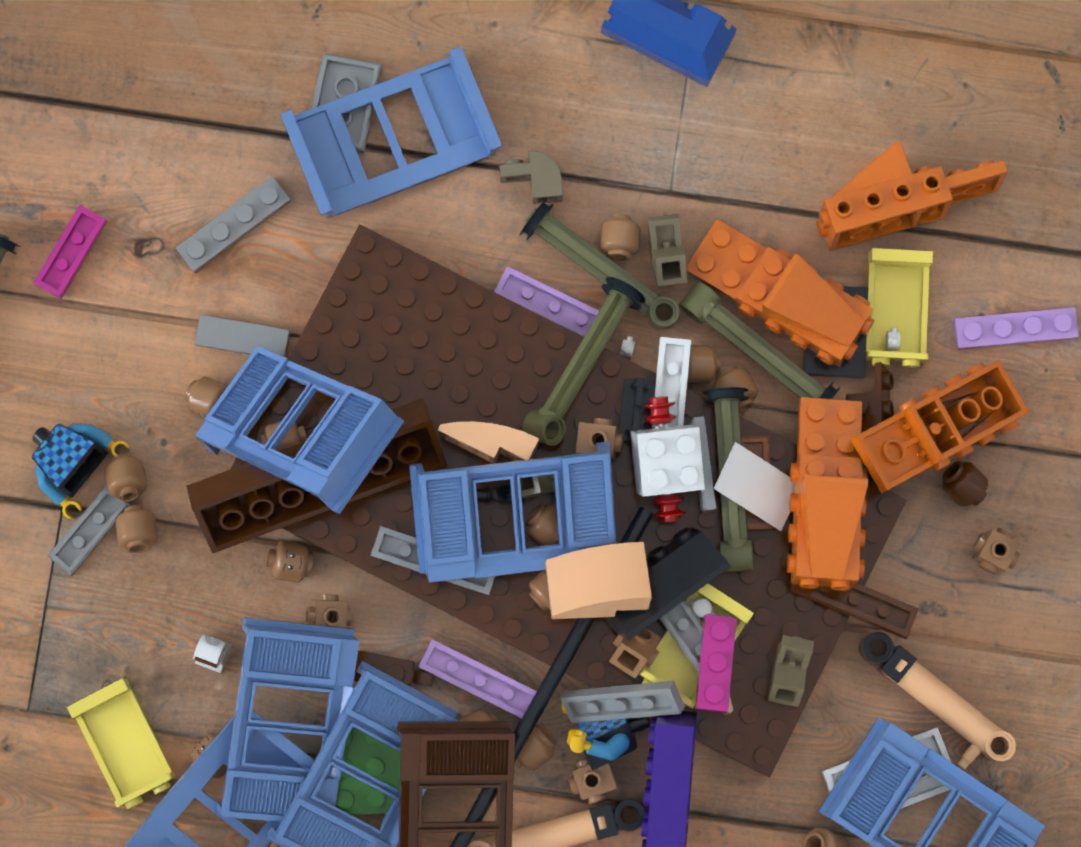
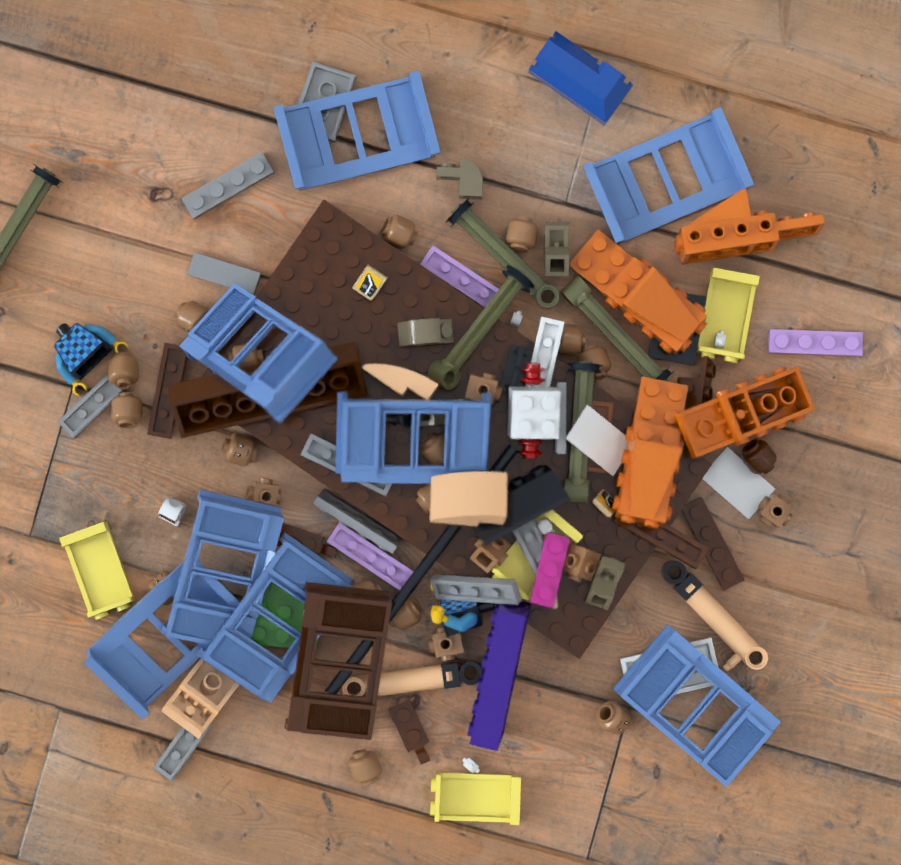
camera: 10 degrees right, 5 degrees up
(70, 252) = (101, 191): dark pink plate -> none
(183, 526) = (170, 372): none -> reddish brown plate
(432, 322) = (370, 282): none -> slope
(458, 635) = (352, 517): none -> light grey plate
(461, 254) = (399, 232): none -> medium nougat head
(512, 375) = (425, 332): none -> dark tan brick
(755, 649) = (580, 563): none -> medium nougat brick
(774, 568) = (604, 503): none -> slope
(849, 107) = (714, 161): none -> medium blue piece
(931, 617) = (708, 534): none -> reddish brown plate
(942, 522) = (737, 483): none -> white sticker

